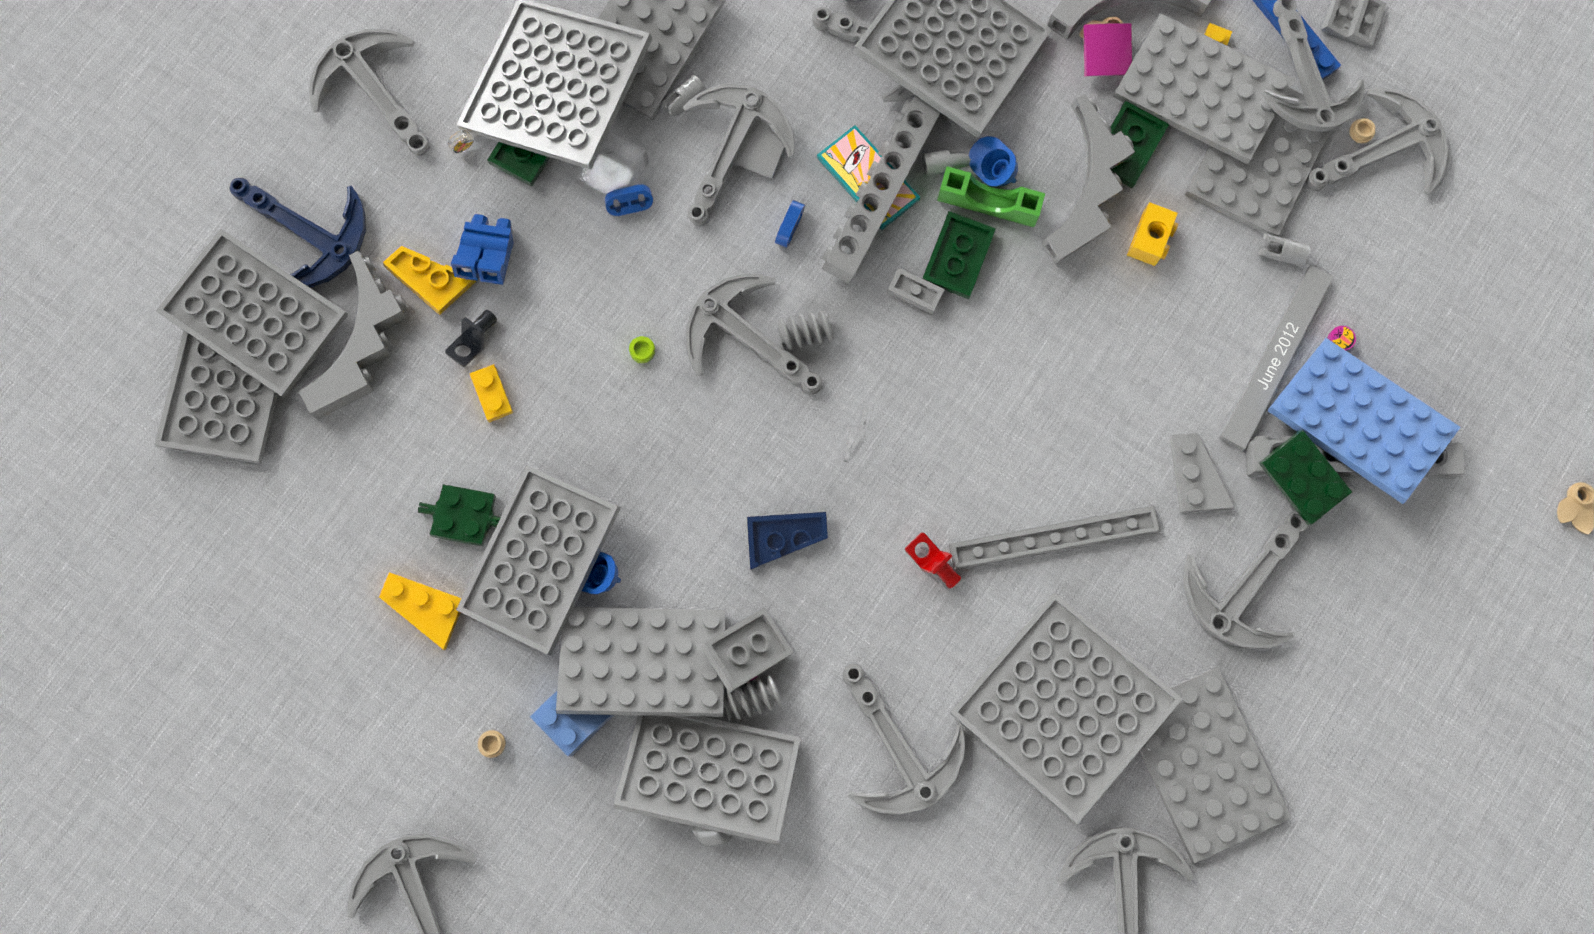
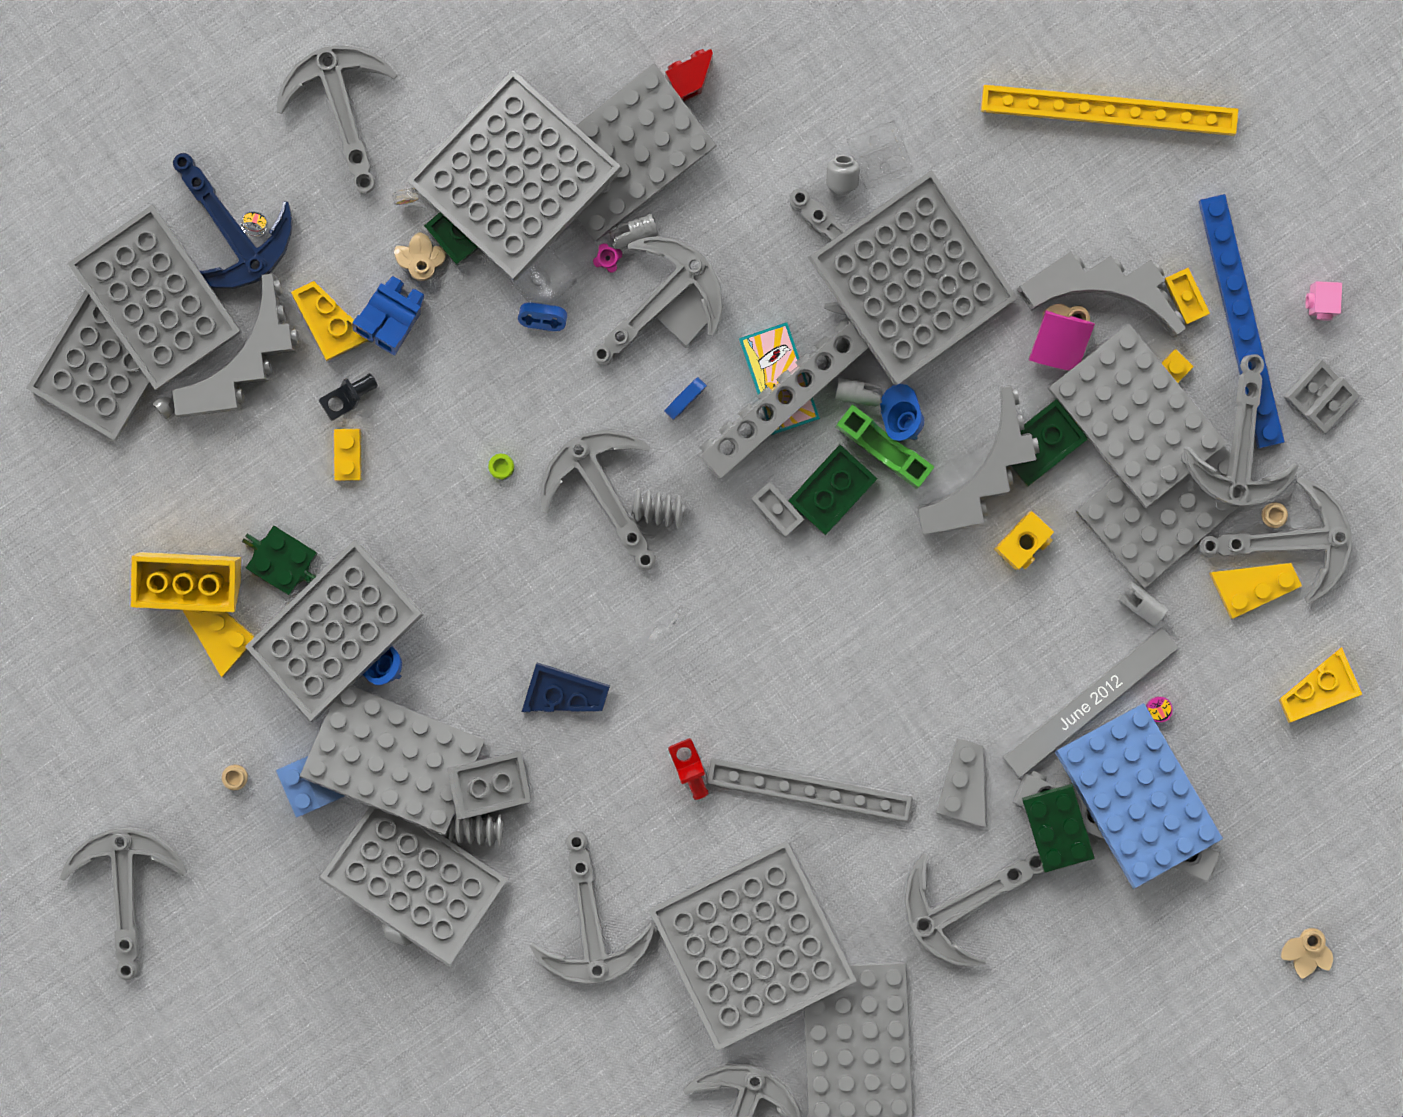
camera: 25 degrees right, 10 degrees up
(297, 415) = (164, 406): none -> light grey hinge
(326, 216) = (254, 223): none -> tile
(373, 568) = (185, 581): none -> yellow slope
(494, 191) = (420, 253): none -> tan plate
(668, 122) = (605, 250): none -> dark pink plate
(1373, 199) = (1252, 587): none -> yellow wing
(1477, 264) = (1321, 689): none -> yellow wing

